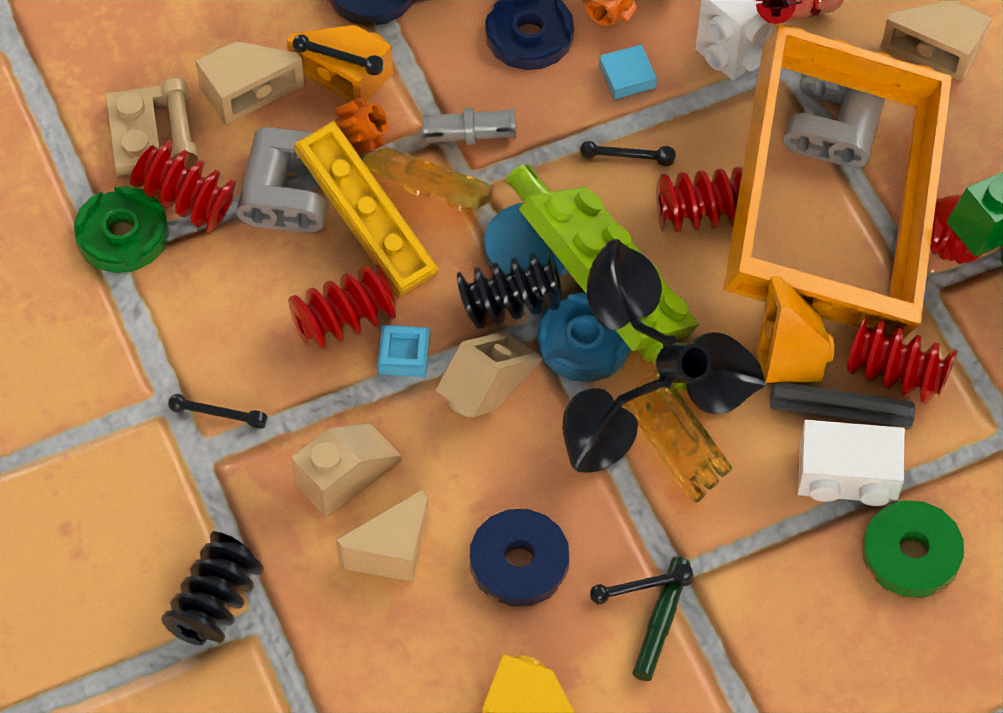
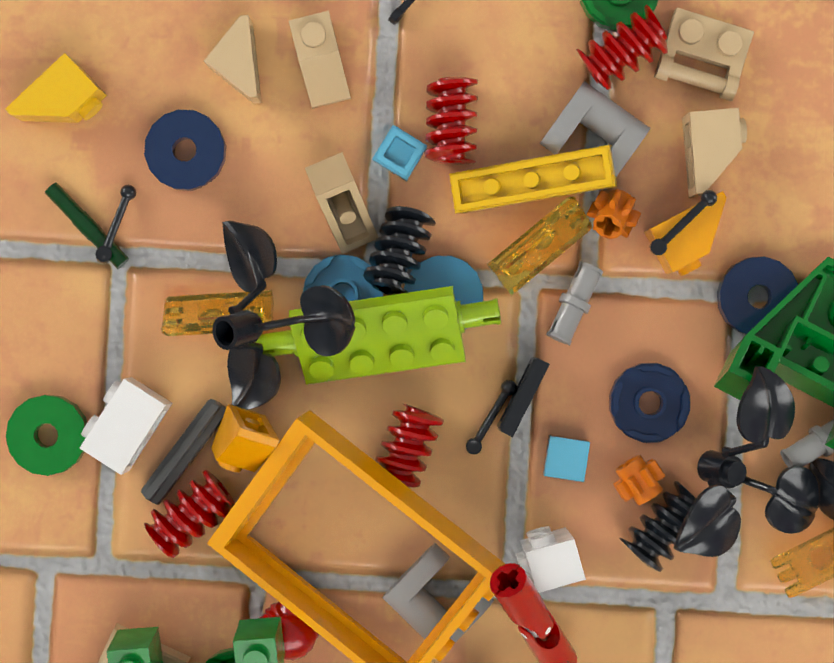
camera: 120 degrees right, 30 degrees up
(597, 124) = (523, 396): none -> black tile

